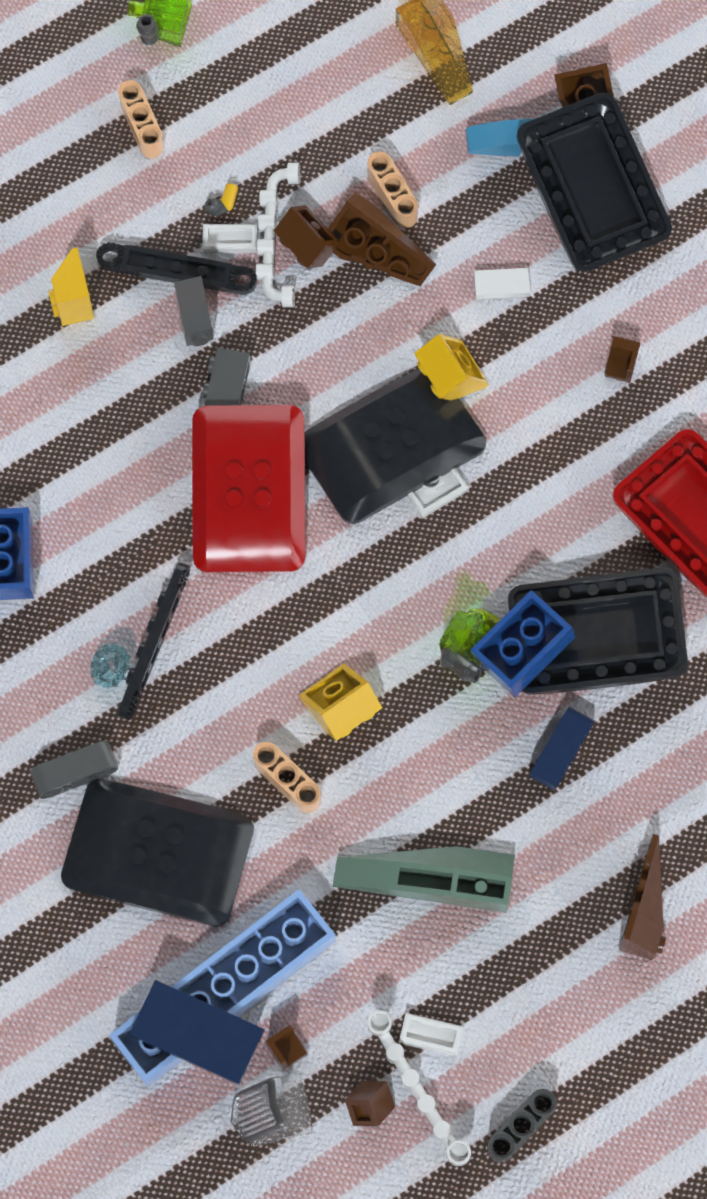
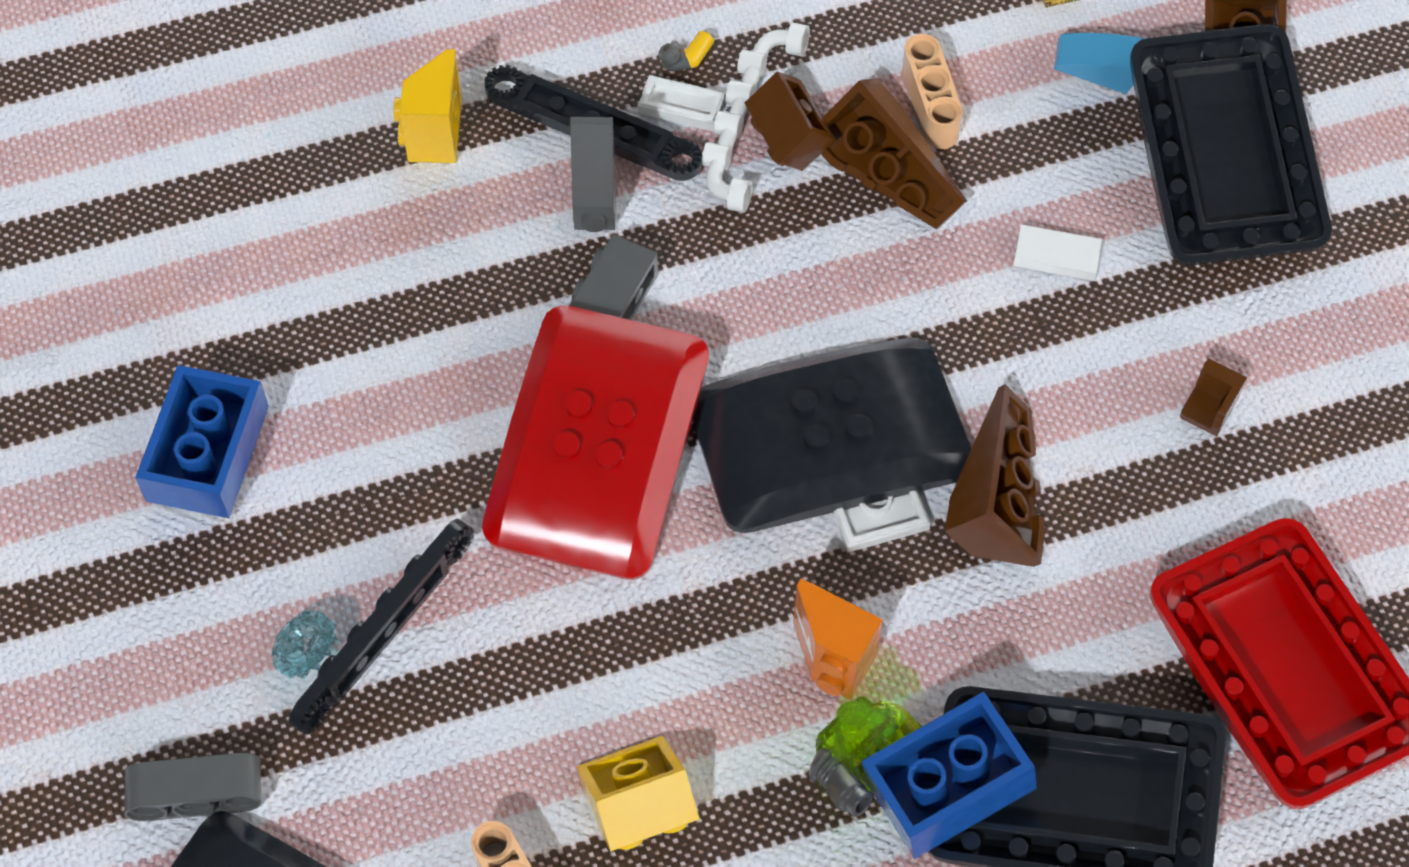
camera: 15 degrees right, 10 degrees down
(431, 578) = (835, 639): none -> orange slope
(450, 368) = (947, 344): yellow slope -> none
(503, 458) = (994, 496): none -> reddish brown wedge

